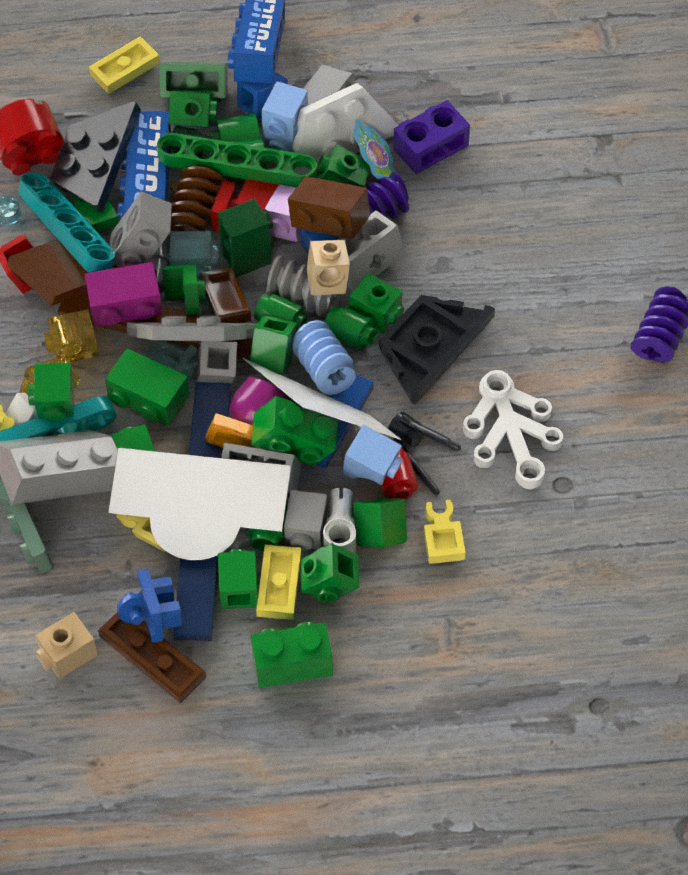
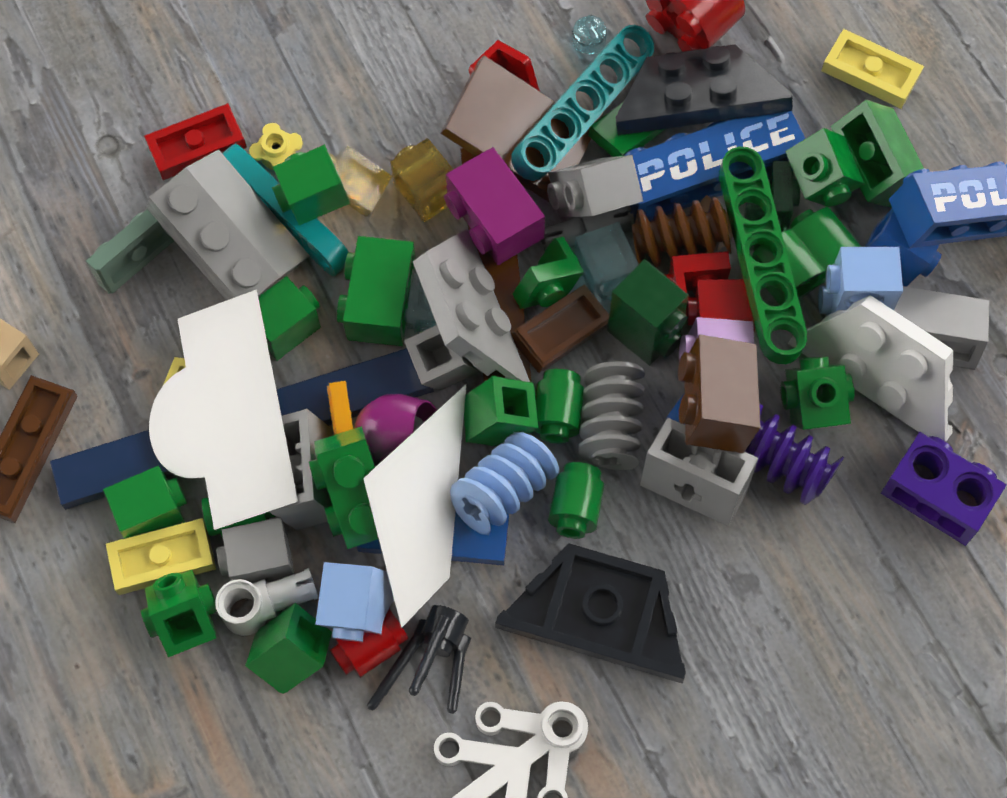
camera: 70 degrees right, 10 degrees up
(152, 603) = (64, 412): blue hips -> none
(292, 654) = (54, 610): green brick -> none
(328, 267) = (621, 429): tan brick -> none
(374, 150) = (870, 424): sticker -> none
(378, 301) = (627, 518): green brick -> none
(443, 537) = (292, 740): light yellow plate -> none

